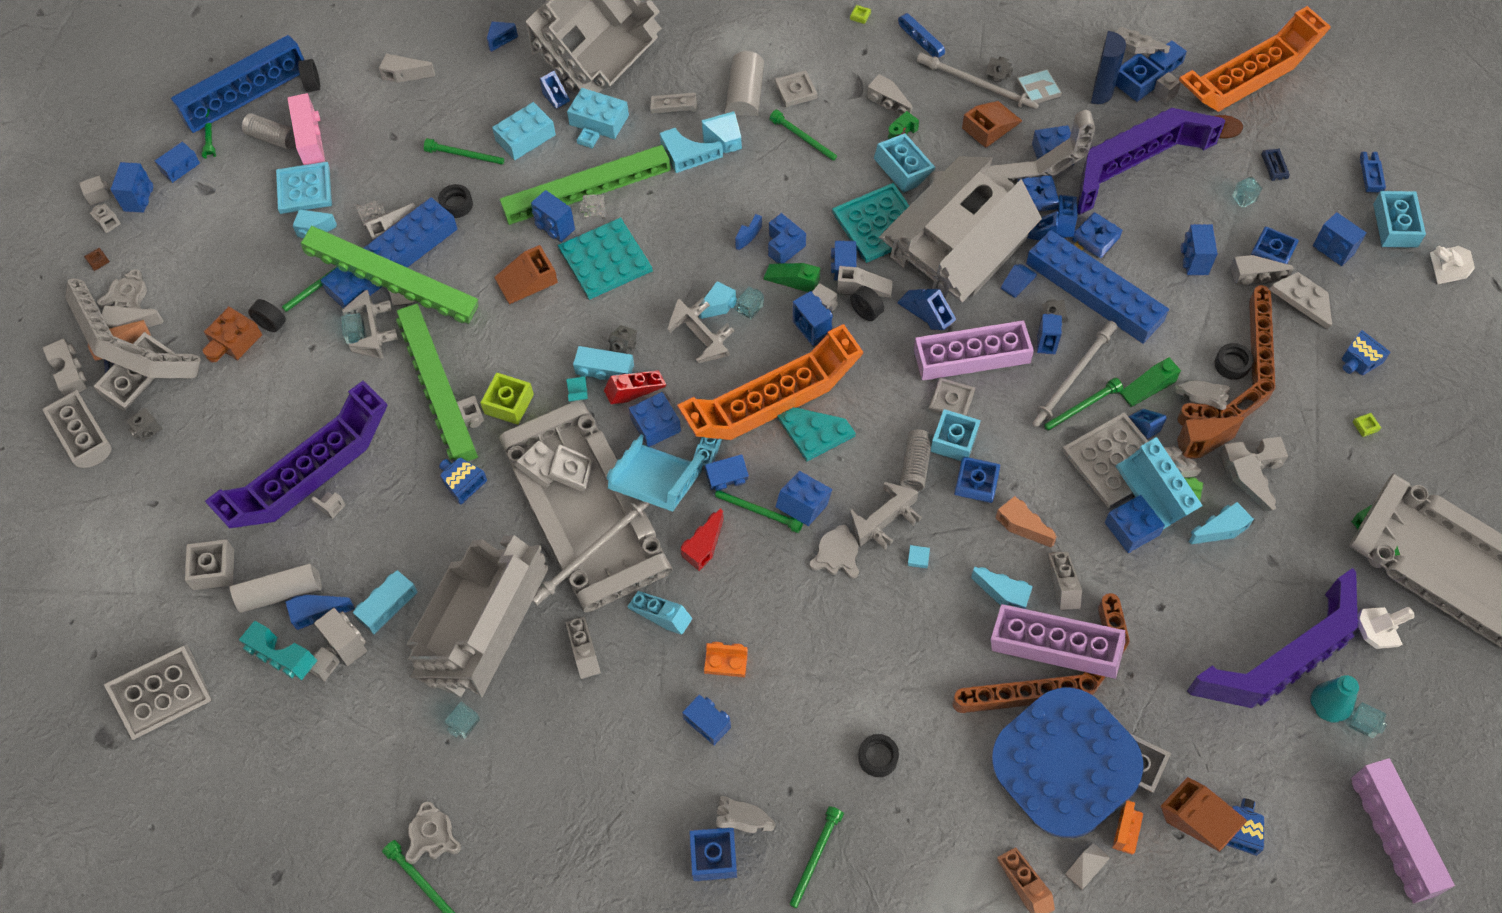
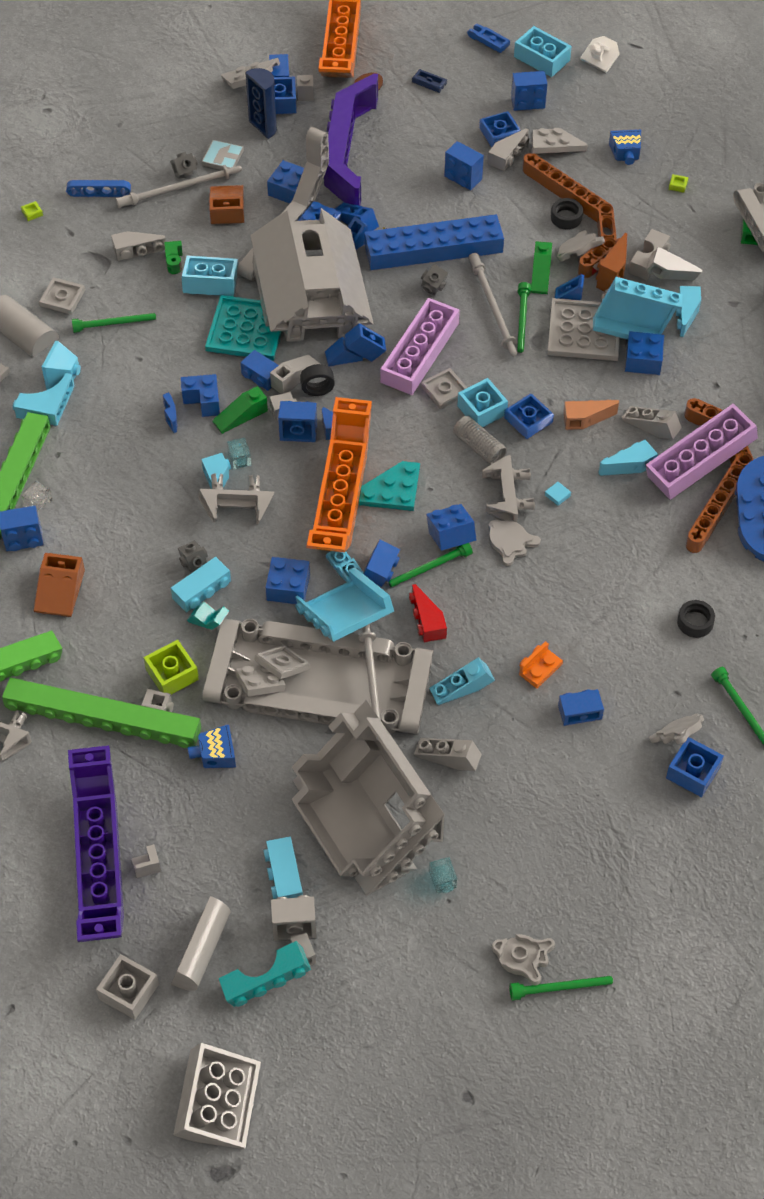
camera: 55 degrees left, 5 degrees down
(307, 609) = (242, 929): blue slope -> none
(605, 258) = (93, 523): teal plate -> none
(632, 386) = (241, 577): red slope -> none
(1018, 280) = (382, 283): blue slope -> none
(1049, 333) = (451, 291): blue brick -> none
(1097, 234) = (390, 212): blue brick -> none
(1247, 191) = (439, 109): clear light blue brick -> none

